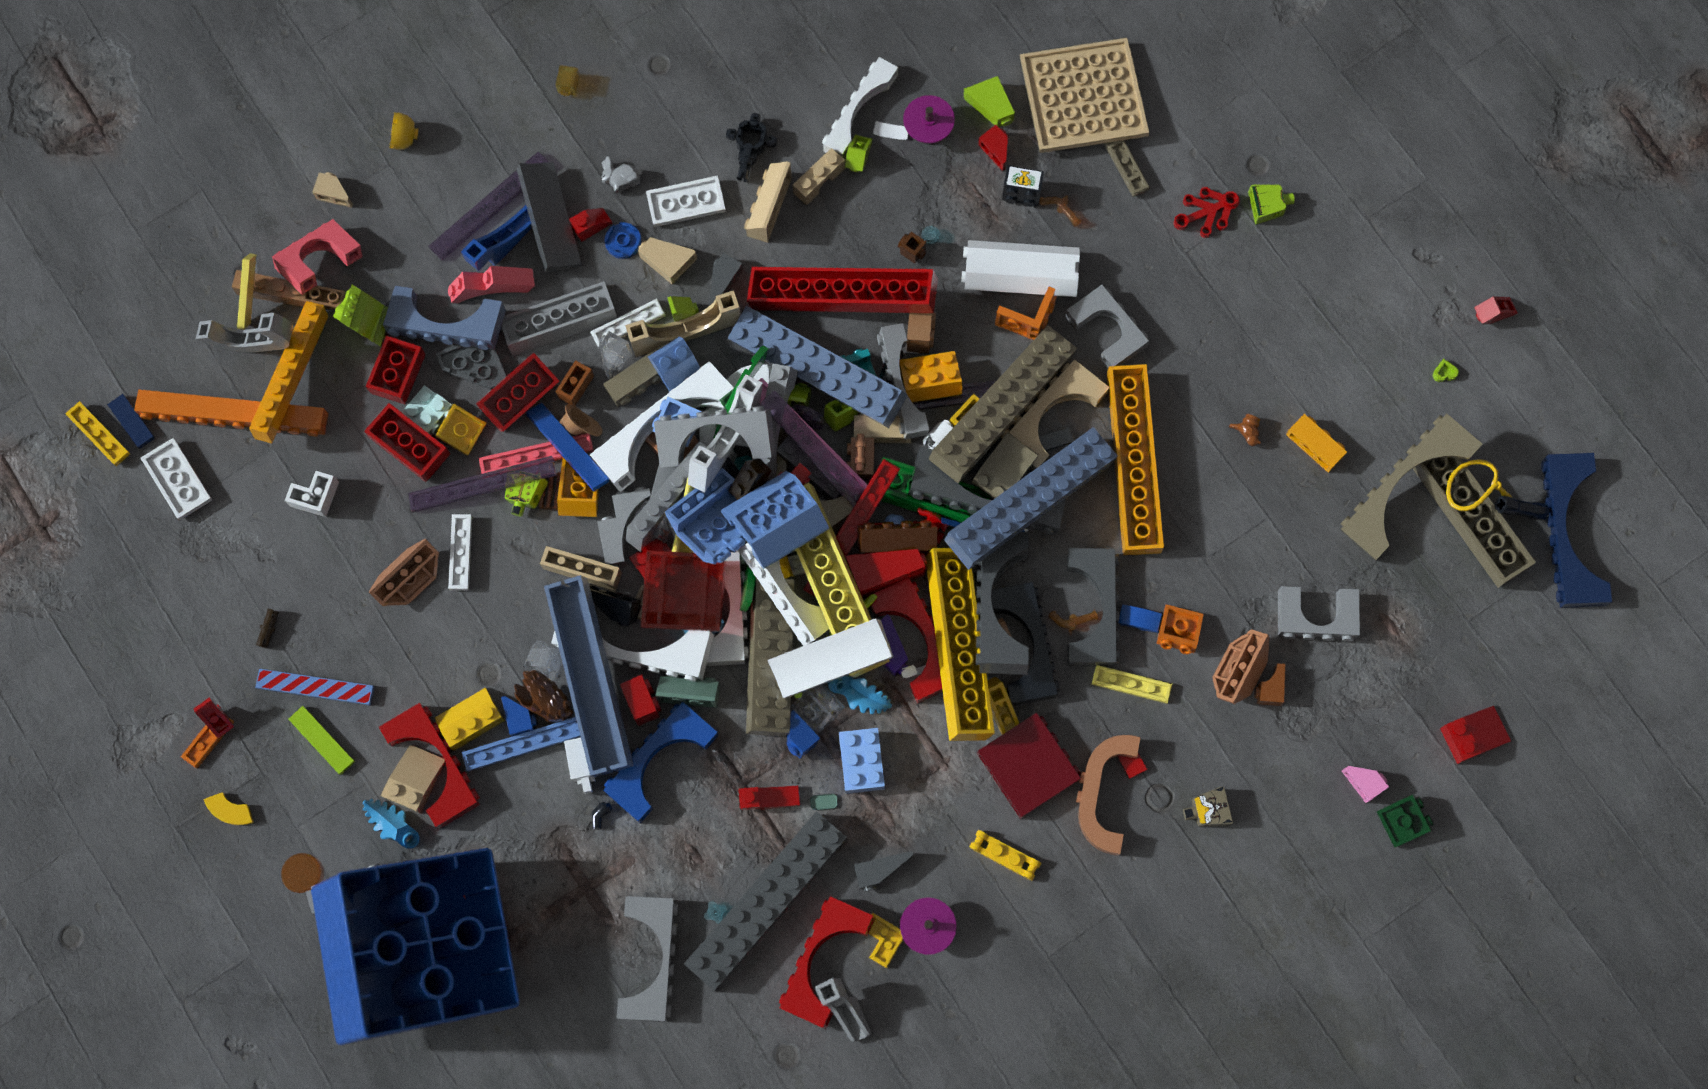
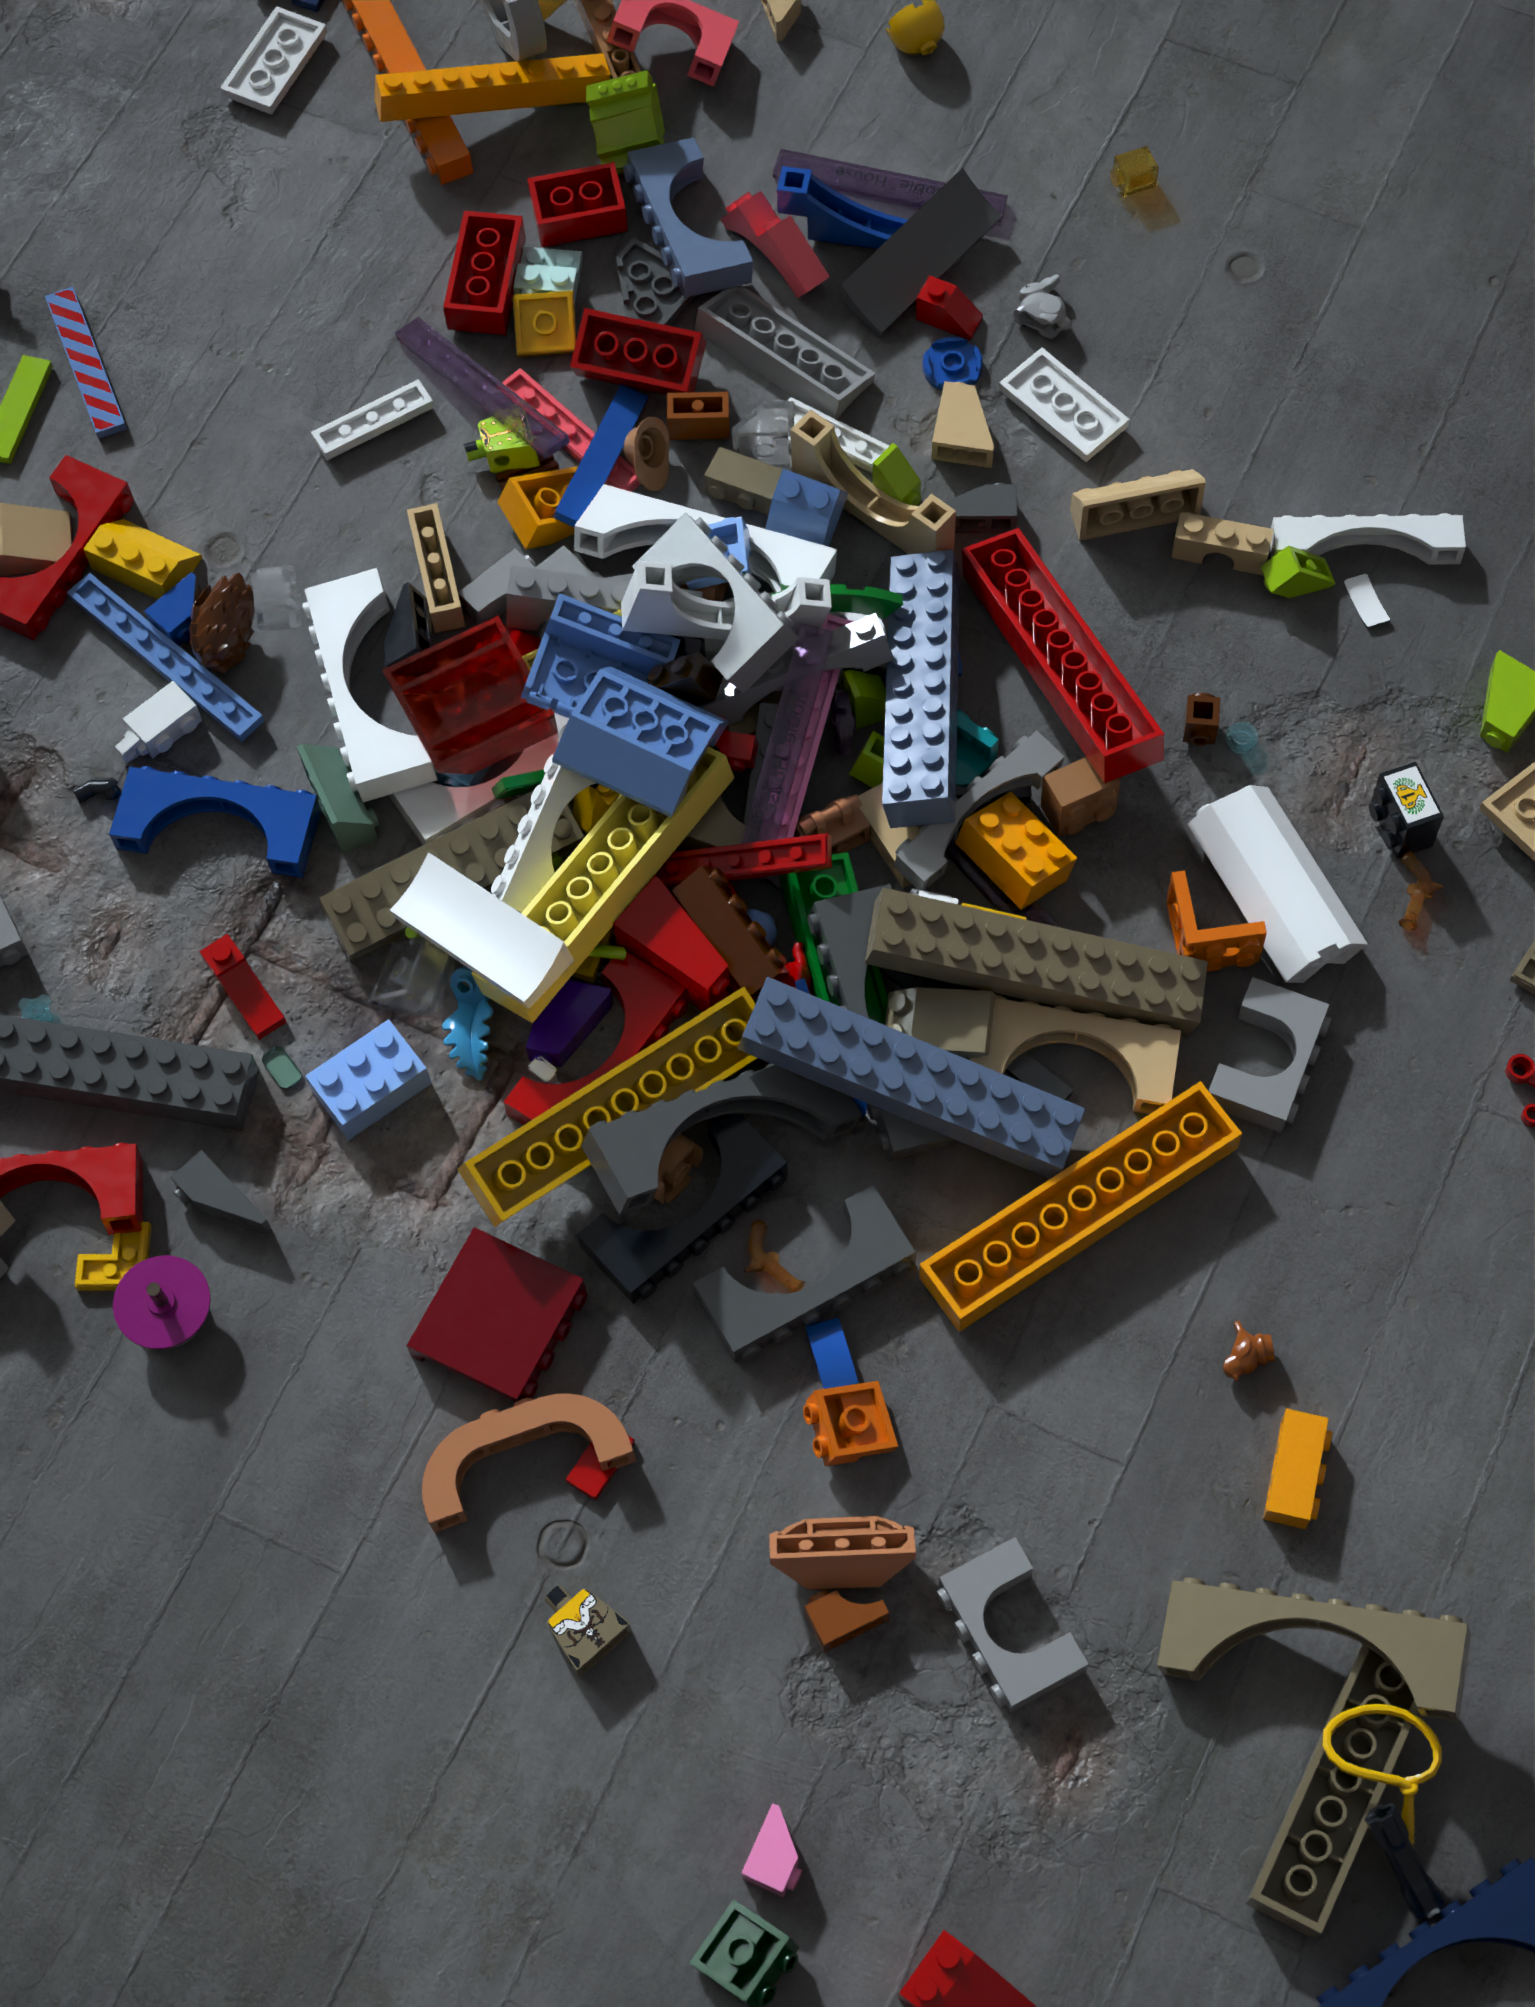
camera: 60 degrees right, 10 degrees down
(267, 628) = (132, 265): dark brown pin -> none
(315, 498) = (346, 216): white brick -> none
(407, 575) = (295, 375): nougat wedge -> none
(588, 676) = (274, 650): sand blue piece -> none
(639, 698) = (276, 738): red brick -> none
(747, 152) = (1194, 438): black piece -> none
(801, 736) = (355, 977): blue slope -> none
(928, 119) = (1414, 630): magenta piece -> none
(995, 145) = (1447, 744): red slope -> none
(1001, 706) = (572, 1212): yellow slope -> none
(1005, 855) = (339, 1362): yellow plate -> none
(1131, 684) = (720, 1403): light yellow tile -> none

